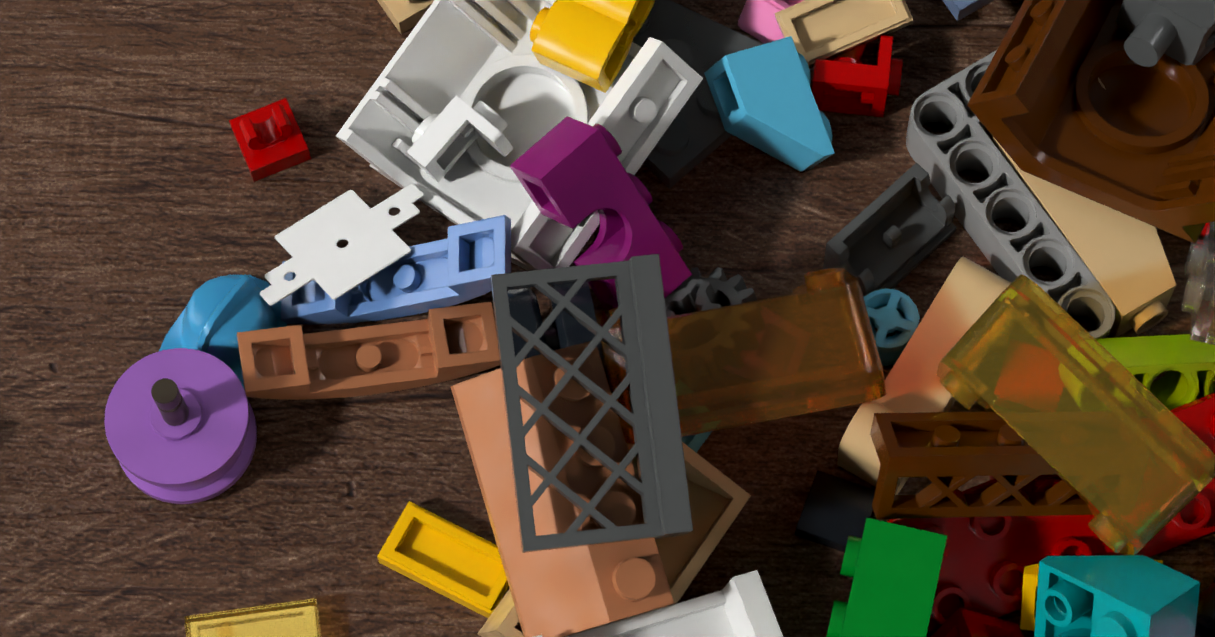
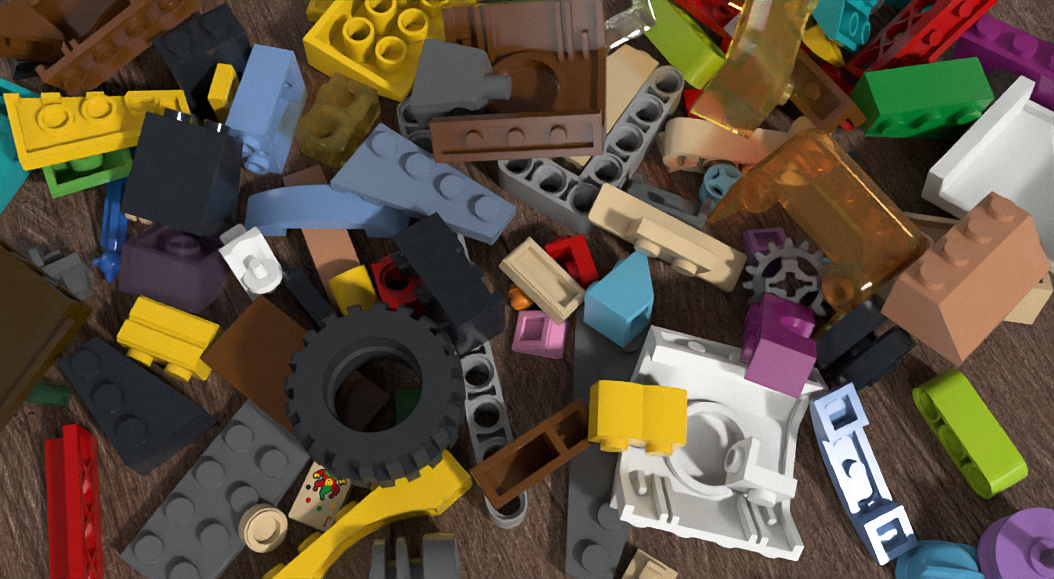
camera: 120 degrees left, 0 degrees up
(335, 269) = (864, 544): white piece -> none
(369, 359) = (920, 484): nougat slope -> none
(377, 455) = (969, 433): none -> lime beam
(446, 559) = (996, 370): yellow tile -> none
(651, 398) = (950, 211): dark grey fence -> none
(827, 188) = (666, 237): none -> tan bracket

